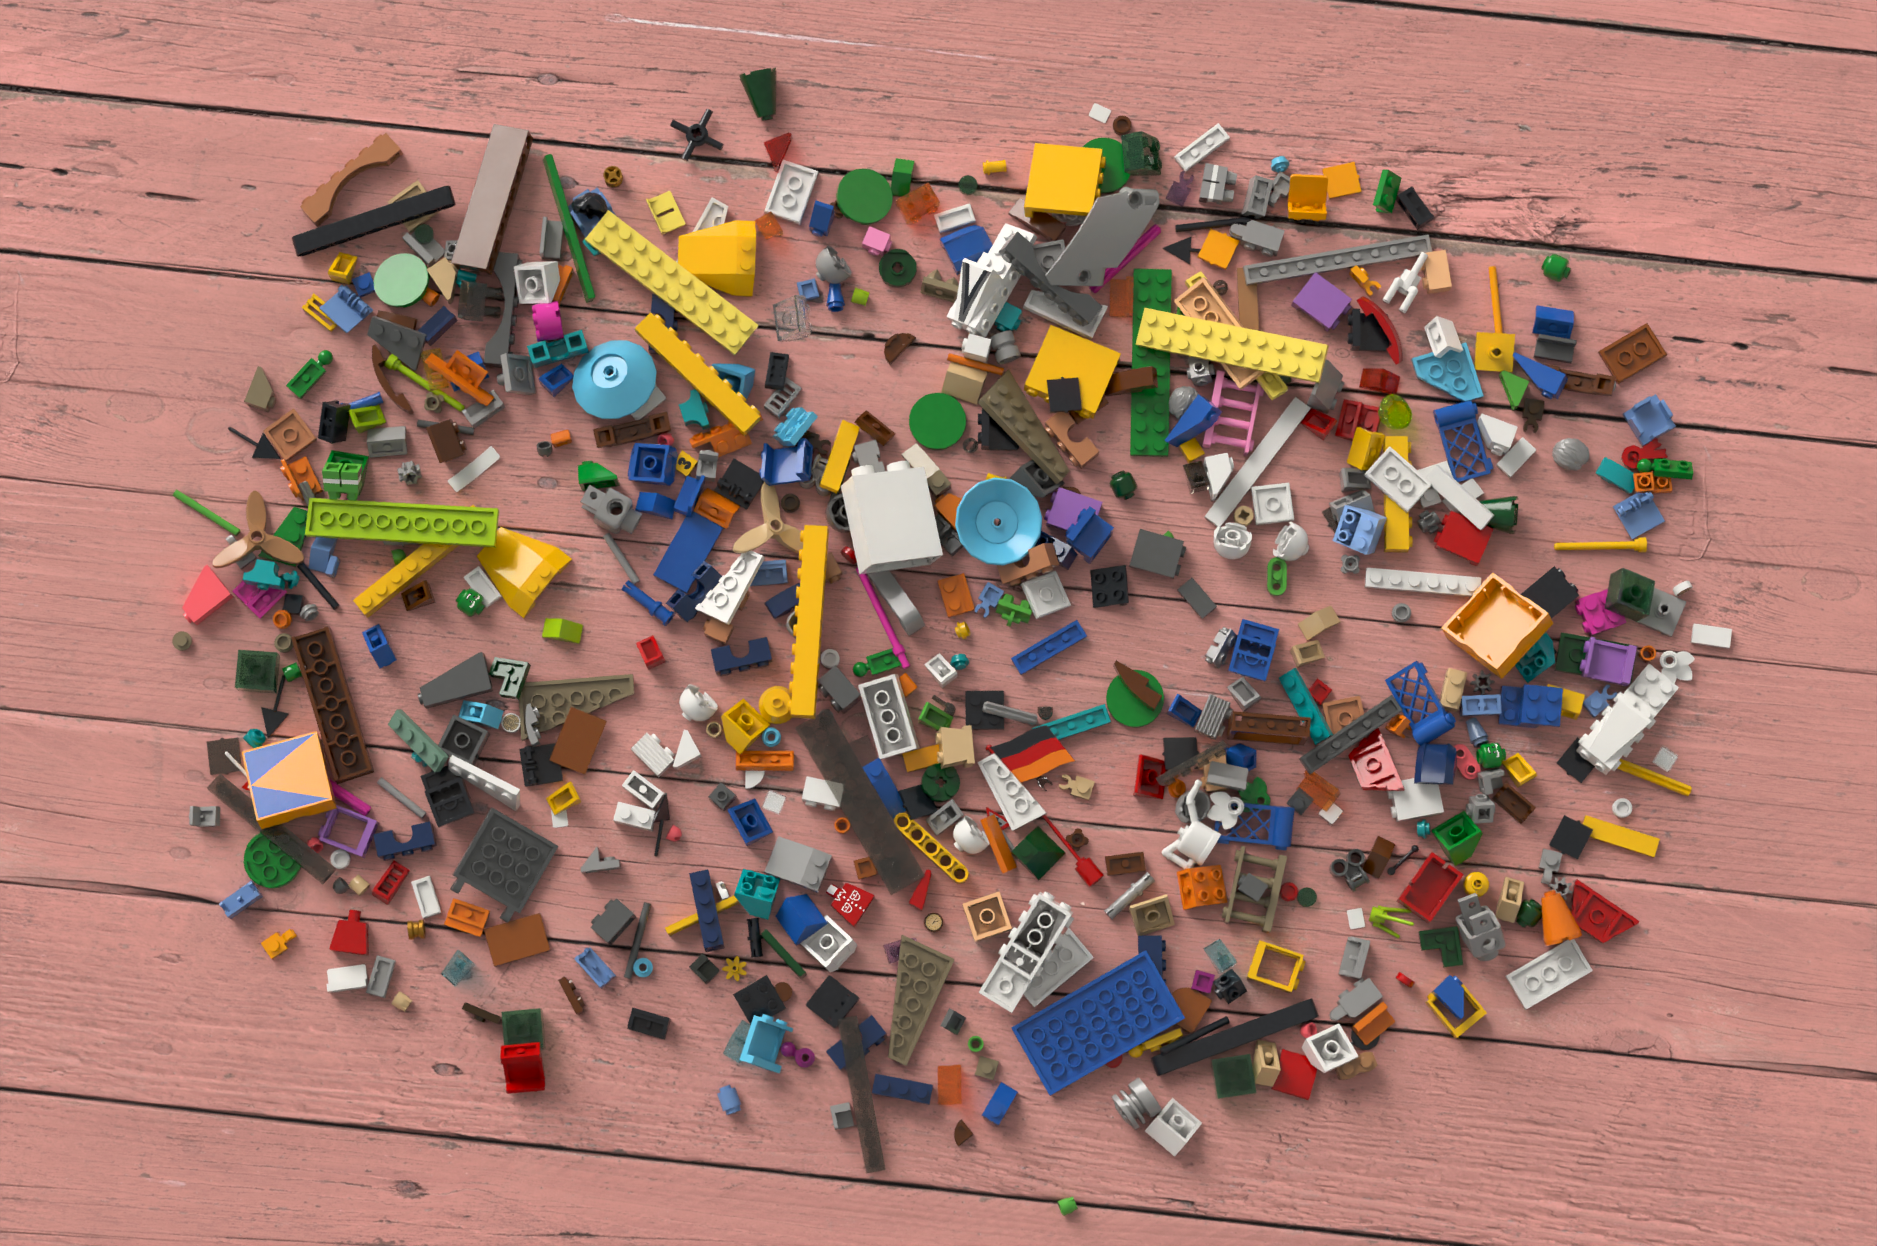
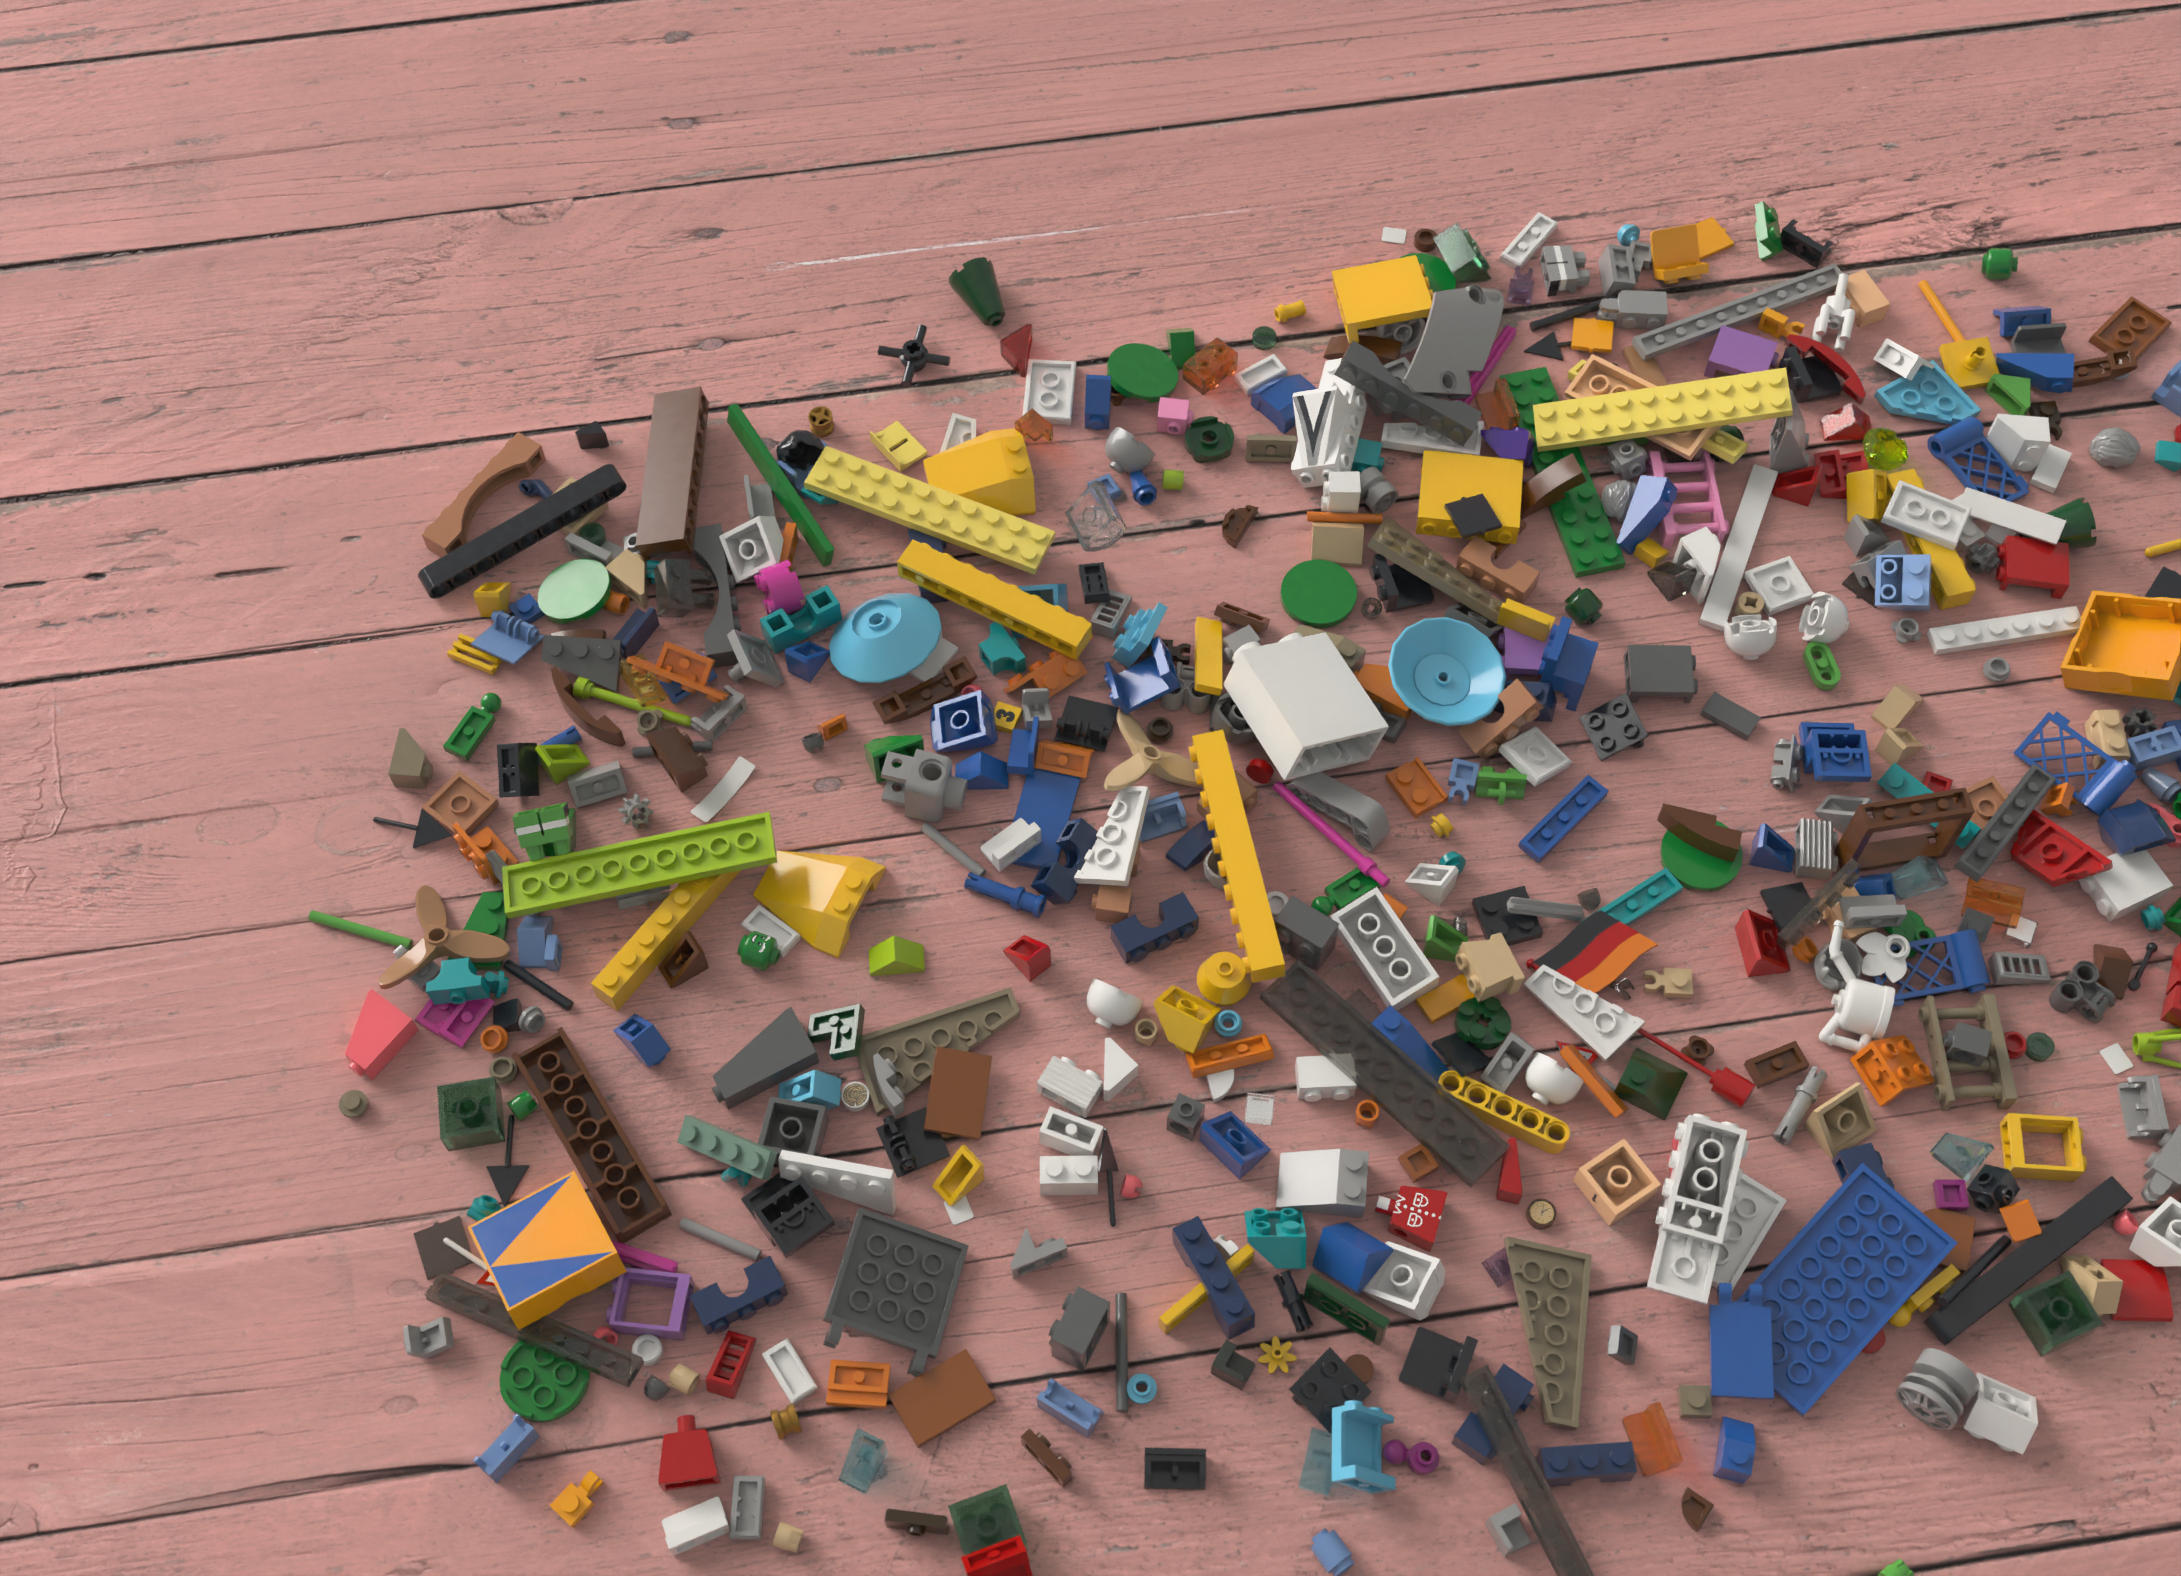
camera: 15 degrees left, 20 degrees down
(391, 180) = (535, 488): none -> dark blue arm
(398, 555) = (641, 916): bright green hinge -> none
(440, 146) = (592, 436): none -> black slope
(660, 566) = (1011, 843): none -> white panel
(975, 1038) = (1669, 1362): bright green hose -> none
(1025, 1043) = (1741, 1346): none -> blue tile
(1073, 489) = (1525, 620): none -> yellow panel
(1116, 336) = (1510, 444): none -> dark purple slope
(1237, 1012) = (2020, 1221): none -> orange slope
(1277, 756) = (1918, 877): none -> clear light blue slope
(1301, 841) = (2002, 977): none -> light grey slope

